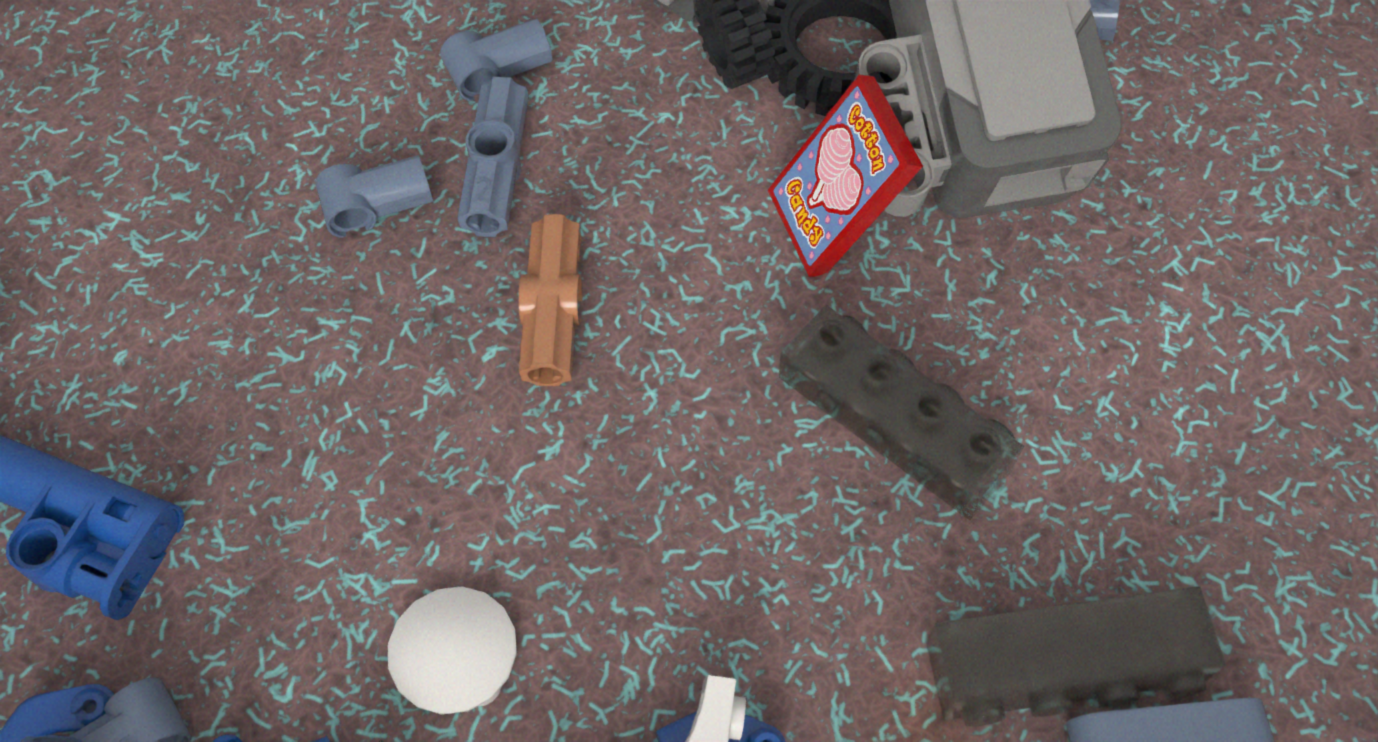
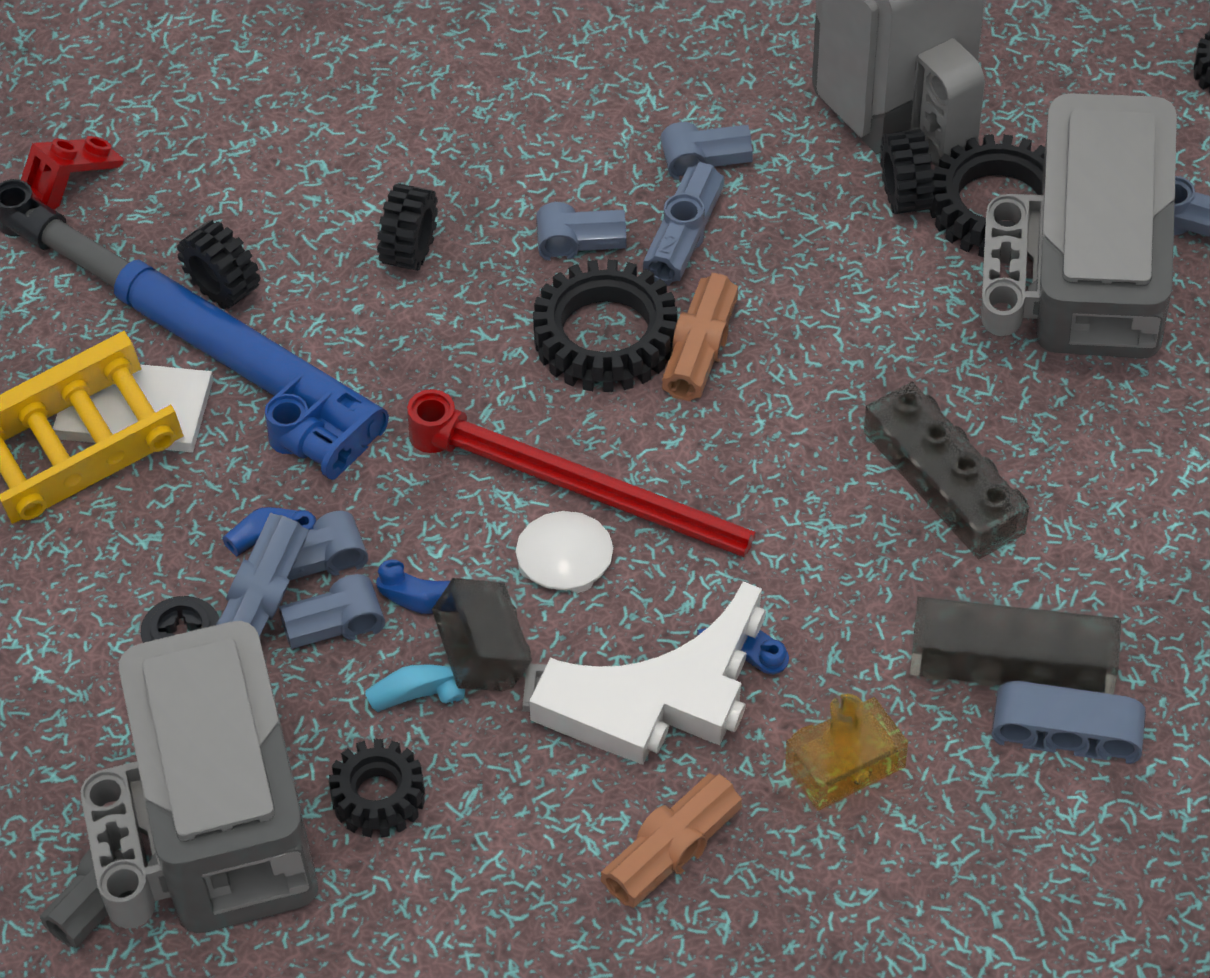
camera: 15 degrees right, 10 degrees down
(155, 239) = (407, 226): none -> black tyre
(276, 510) = (438, 426): none -> red piece
(392, 270) = (608, 285): none -> black tyre
(844, 176) = (953, 292): tile -> none

